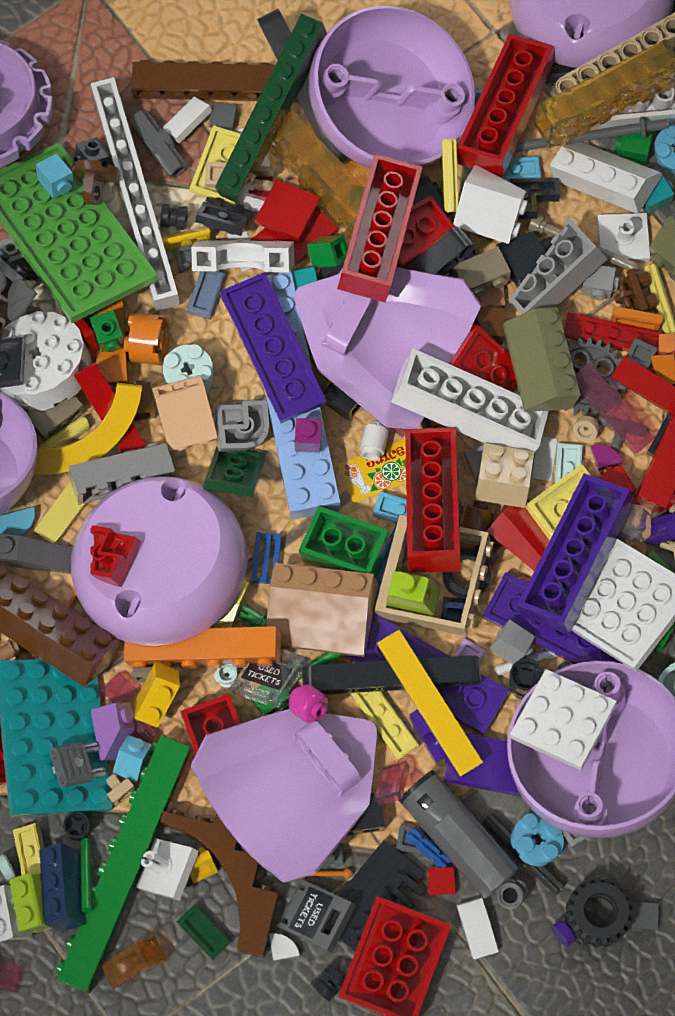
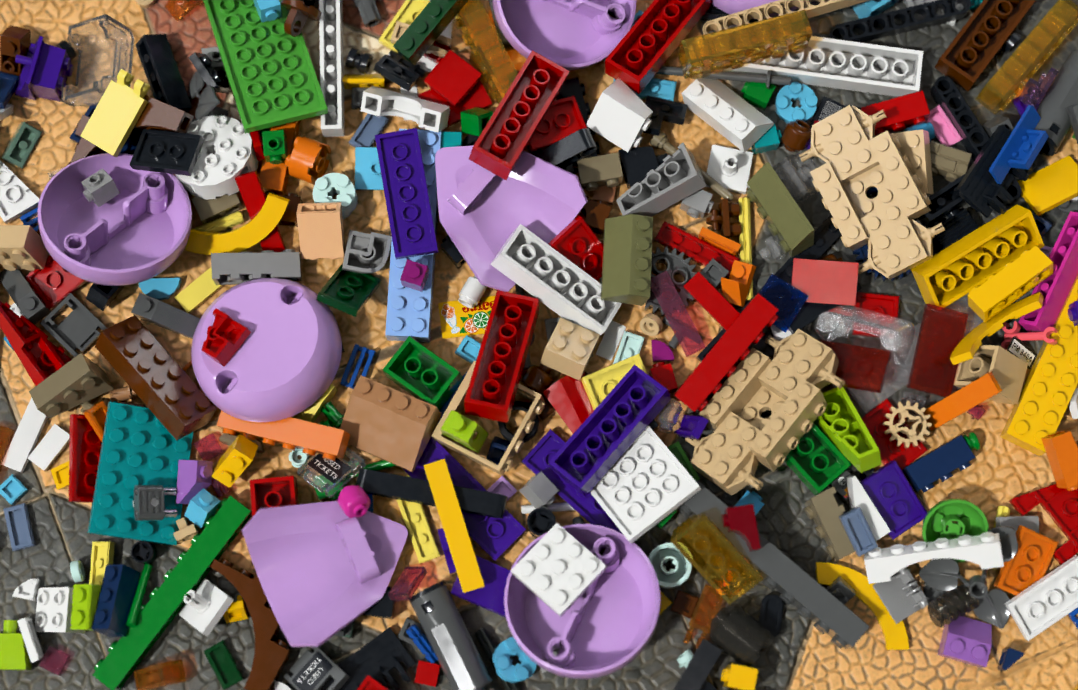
camera: 15 degrees right, 5 degrees up
(219, 334) = (367, 169): none -> medium azure plate
(347, 873) = (352, 647): orange hinge -> none
(450, 175) = (594, 81): light yellow axle -> none

